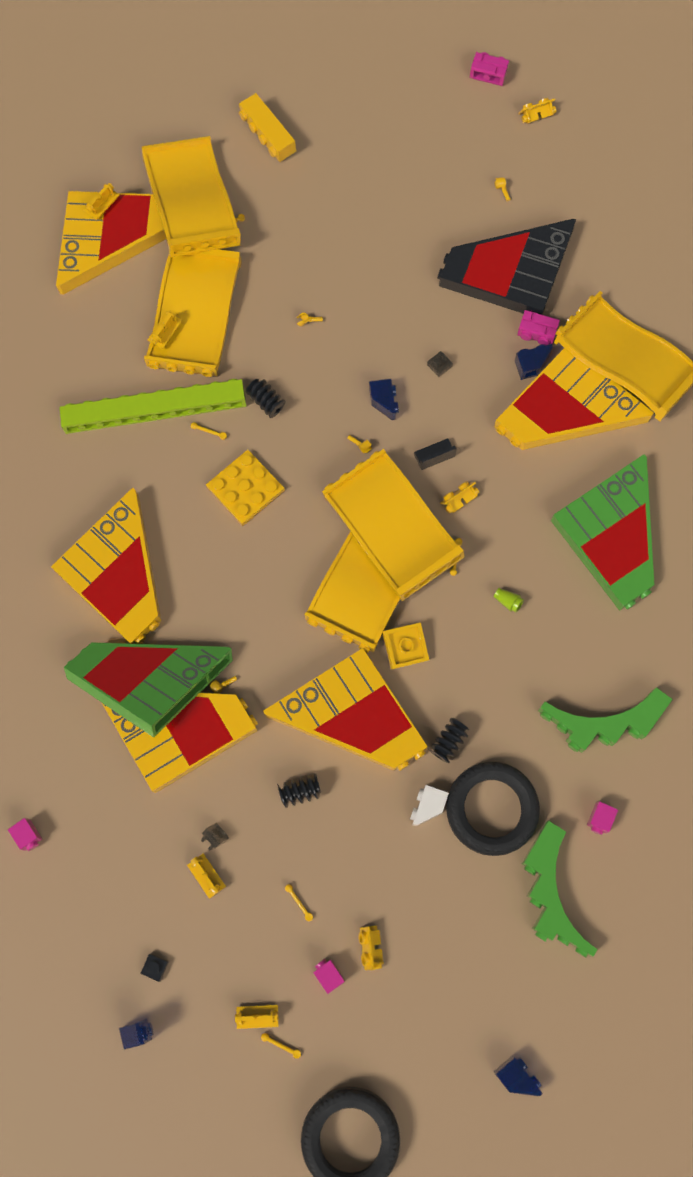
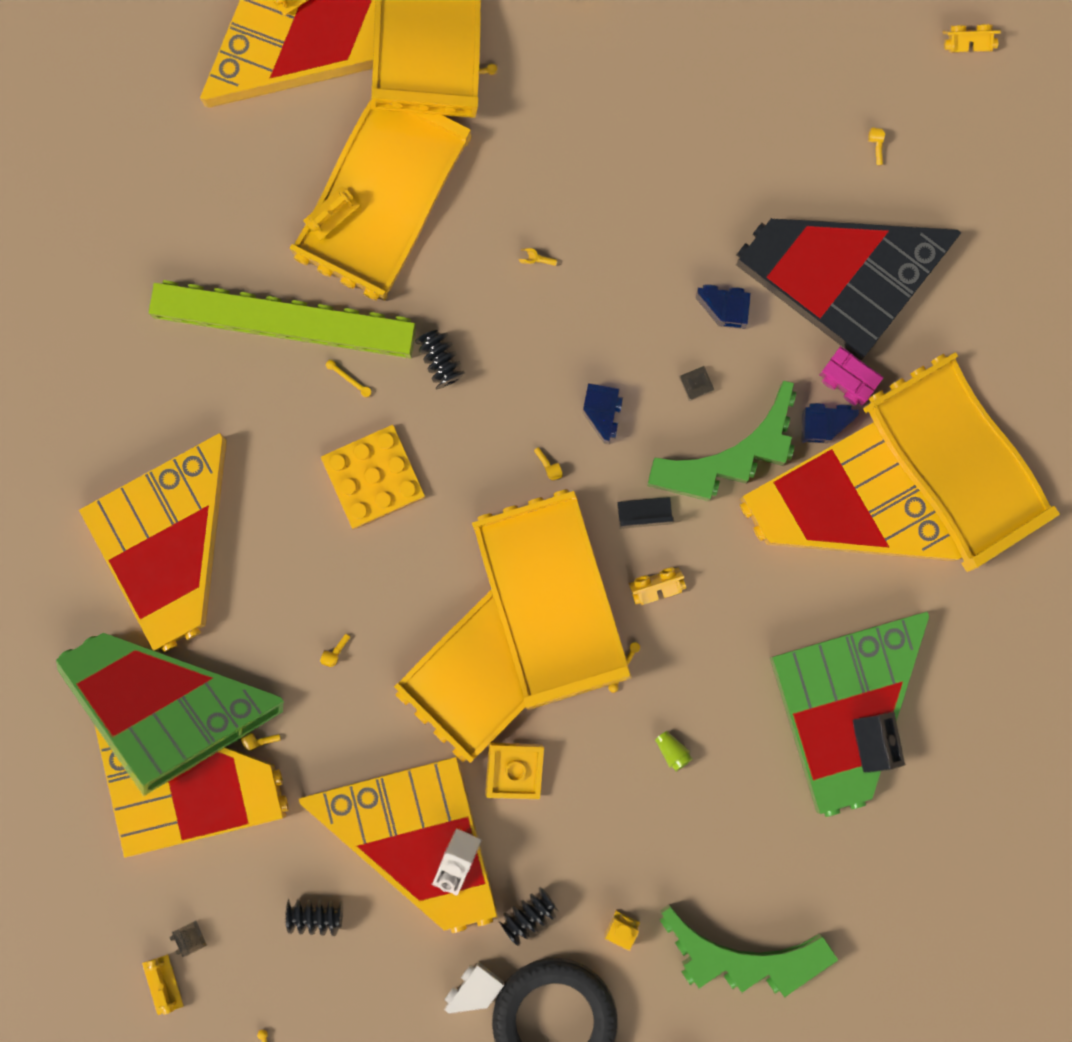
camera: 20 degrees right, 10 degrees up
(253, 614) = (330, 658): none -> yellow hand
(387, 716) = (456, 862): none -> white slope
(441, 310) = (724, 306): none -> clear blue slope
(464, 418) = (766, 443): none -> bright green arch
(517, 730) = (622, 930): none -> yellow brick
(644, 545) = (879, 742): none -> black panel

